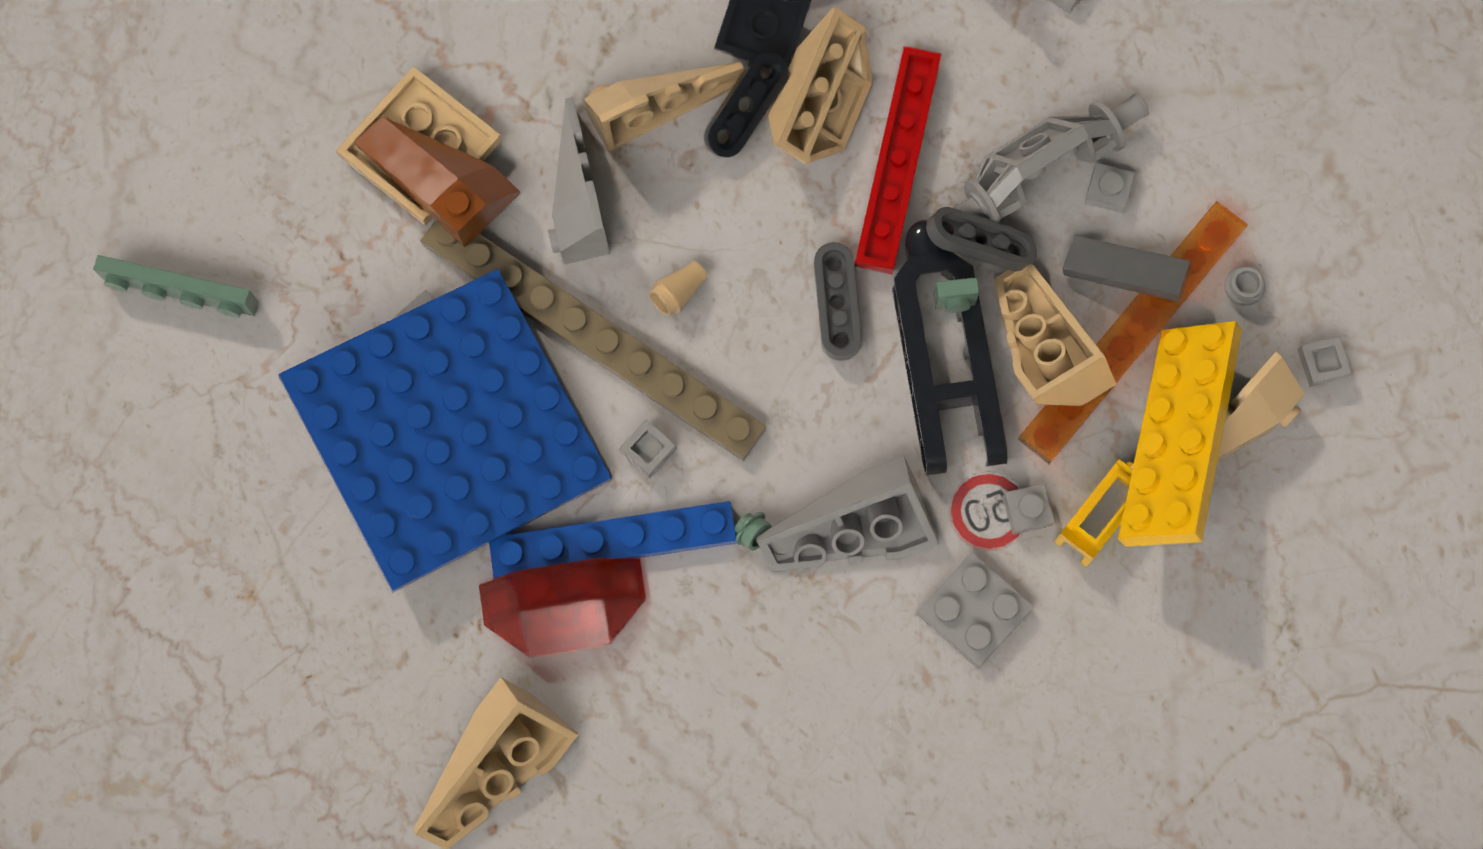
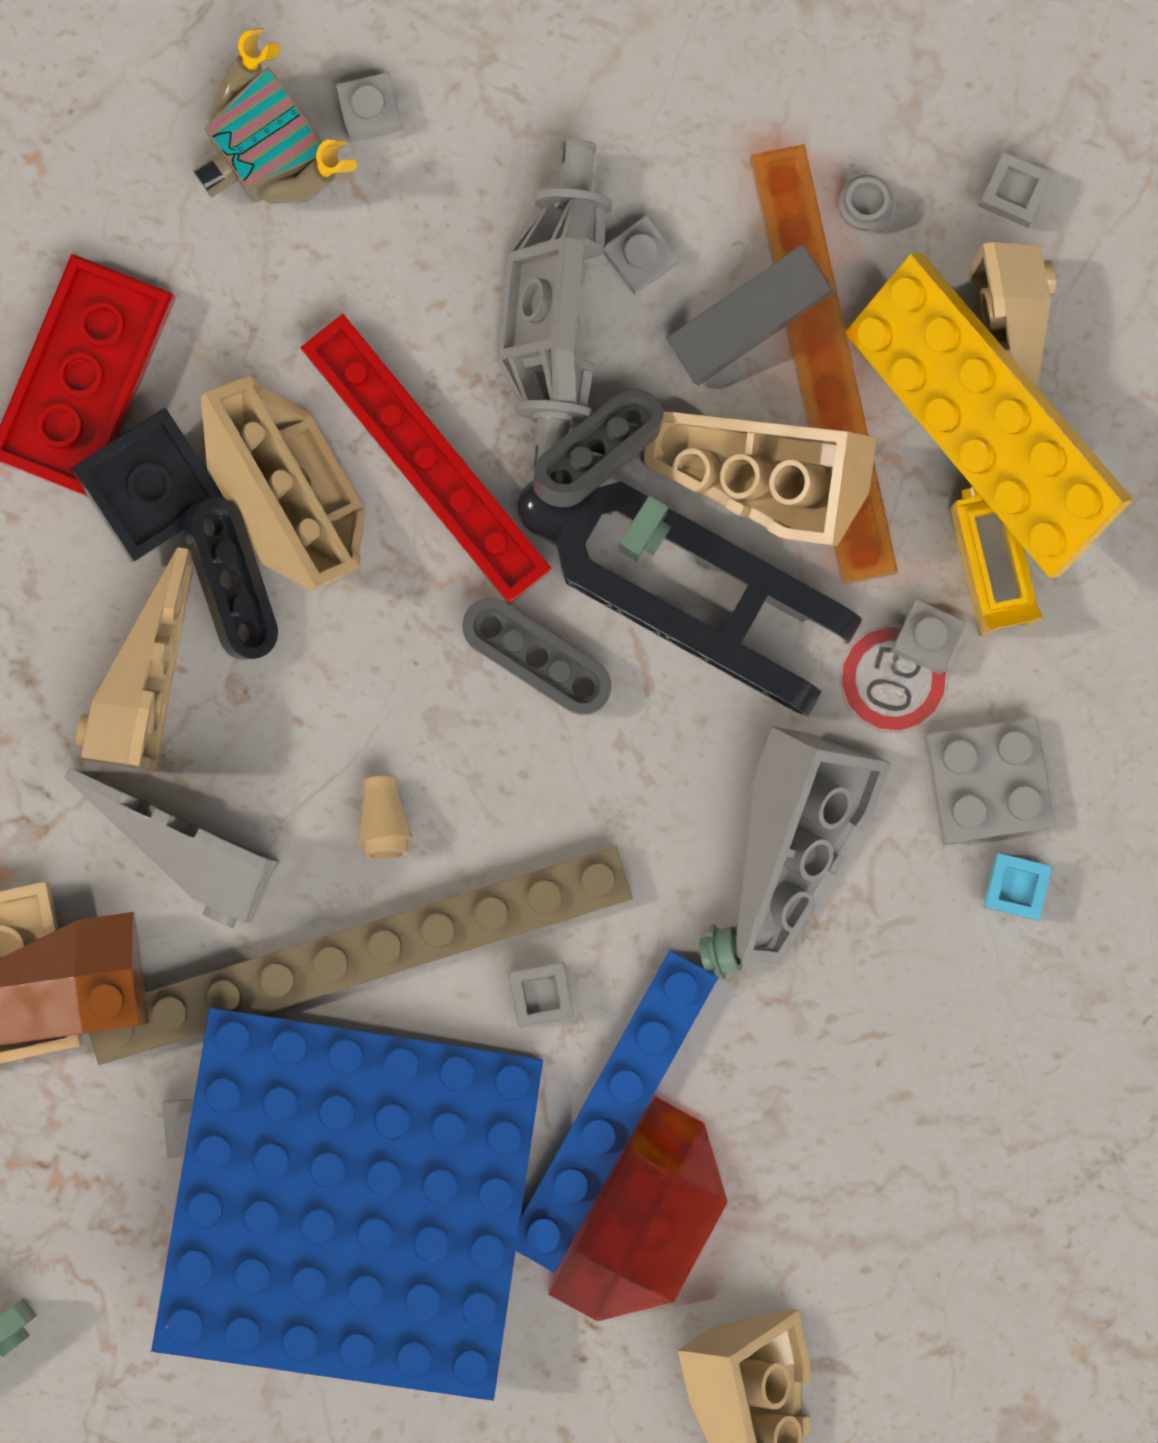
camera: 55 degrees left, 10 degrees up
(926, 671) = (1017, 886): none -> medium azure plate

